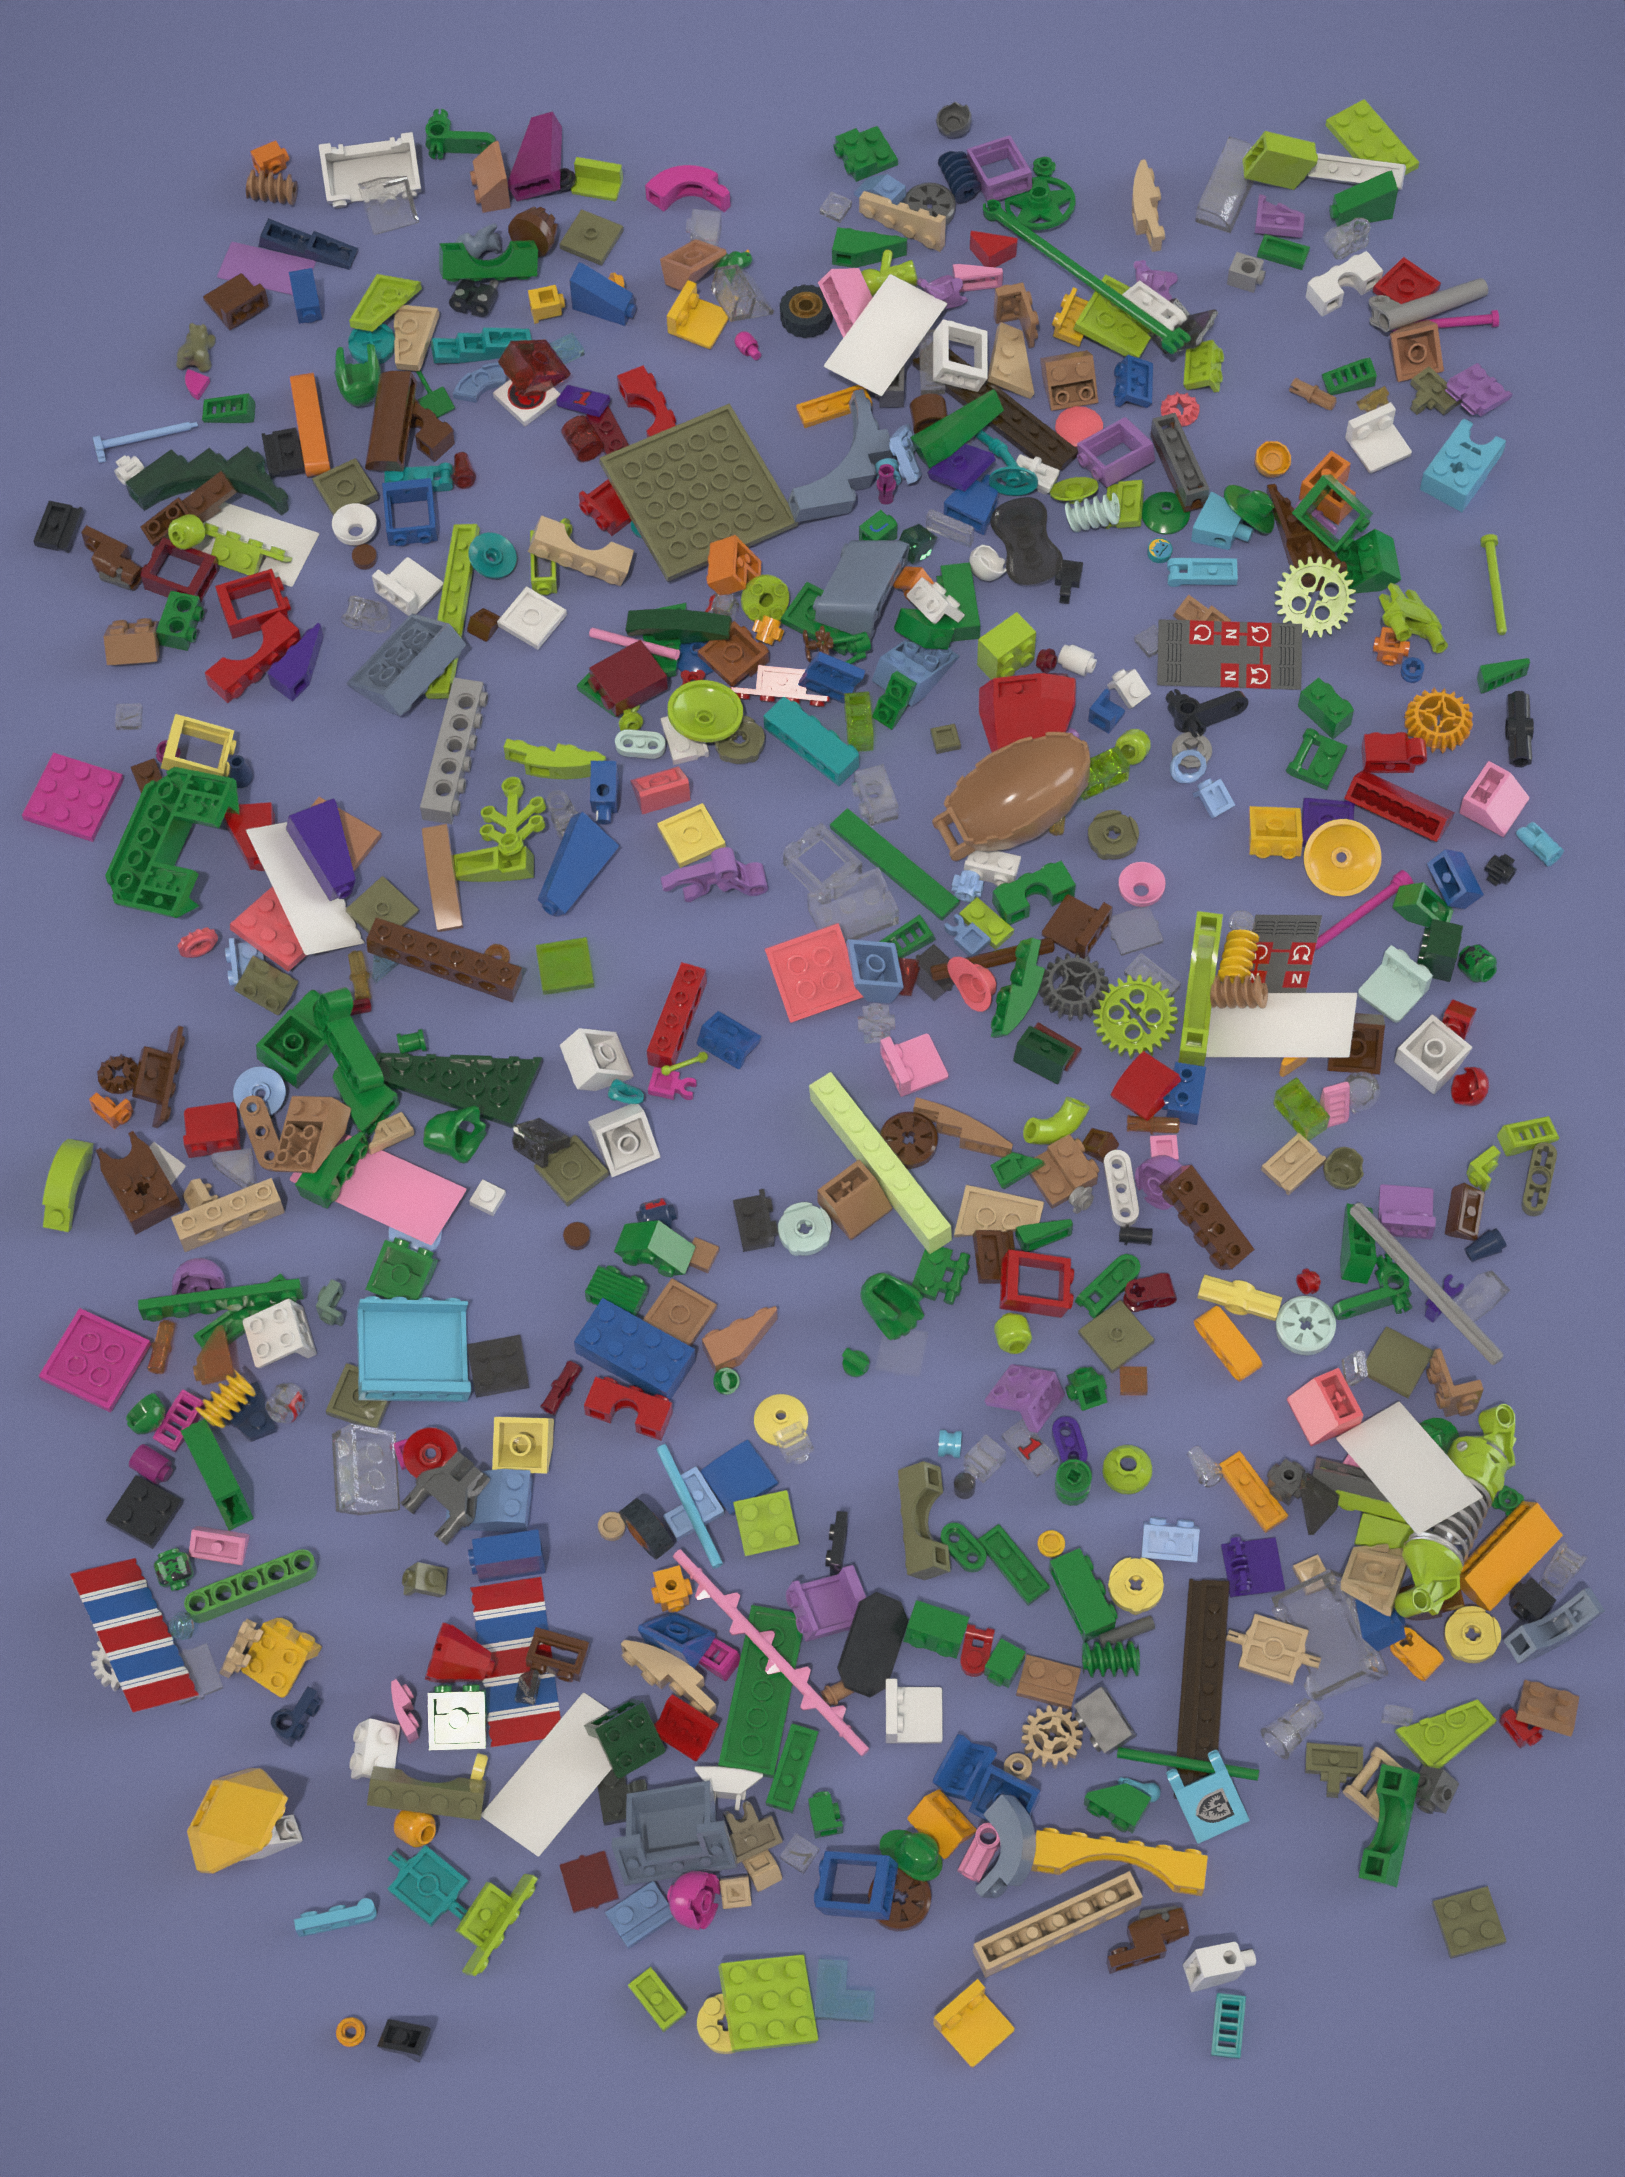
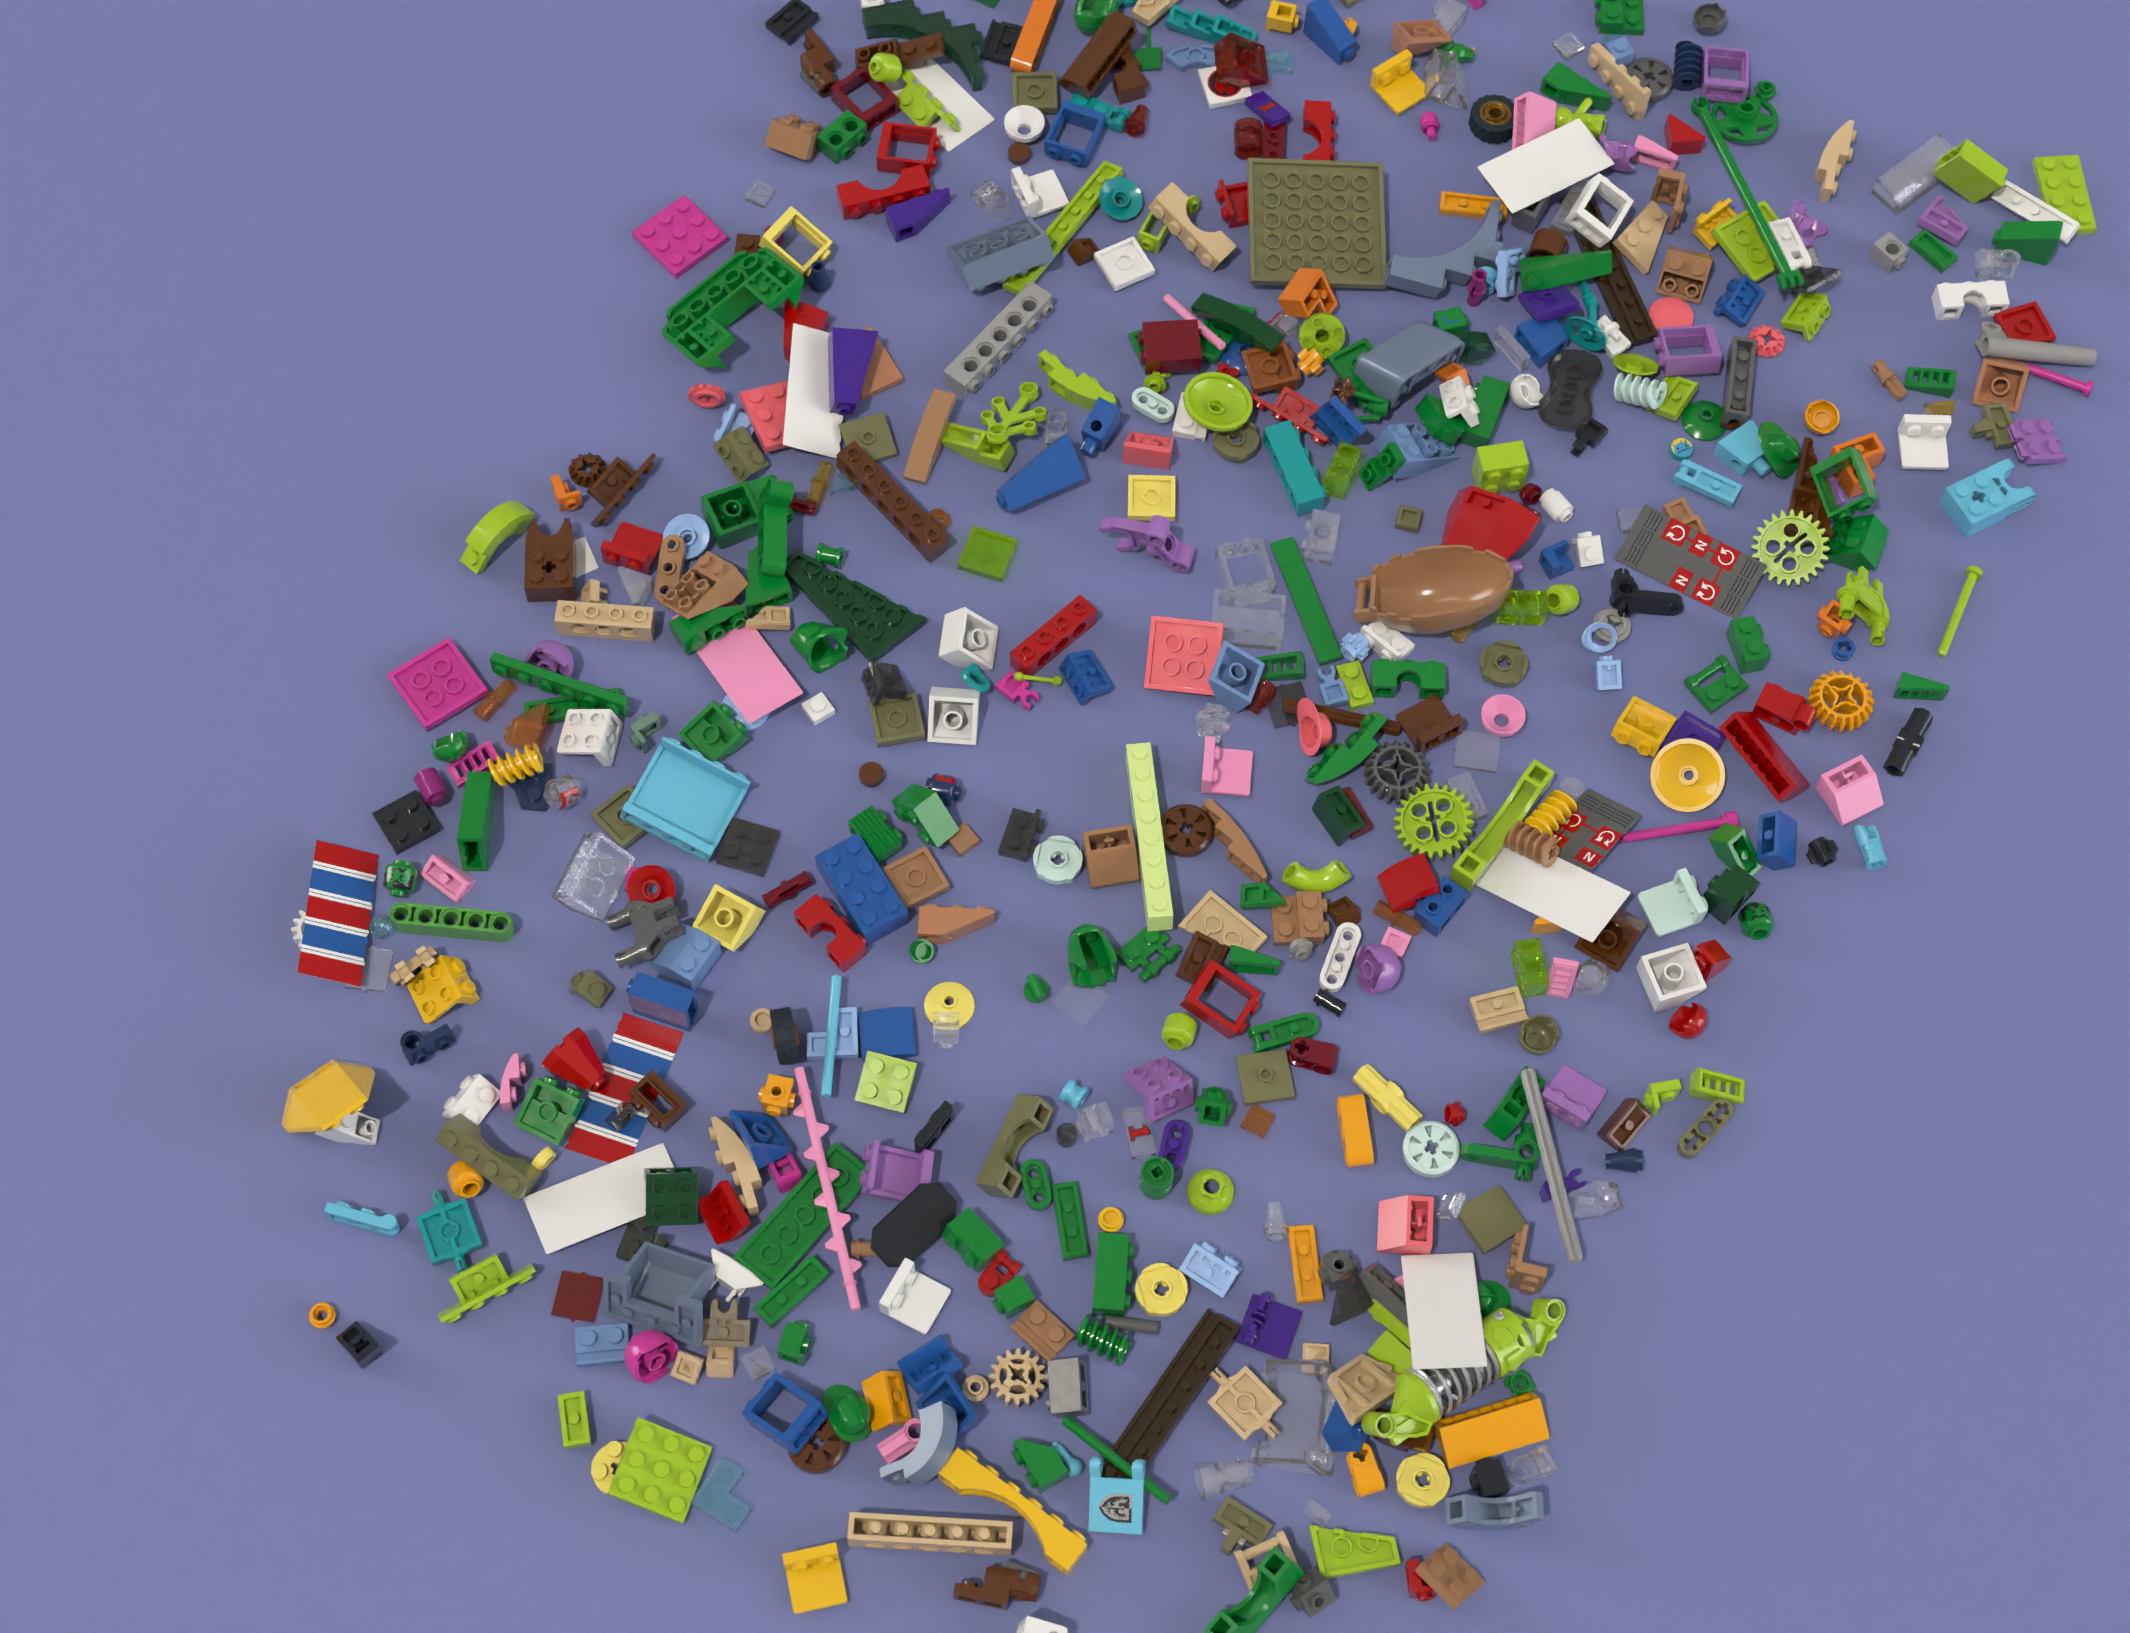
camera: 25 degrees right, 0 degrees up
(1206, 1218) = (1393, 1016): reddish brown brick -> none

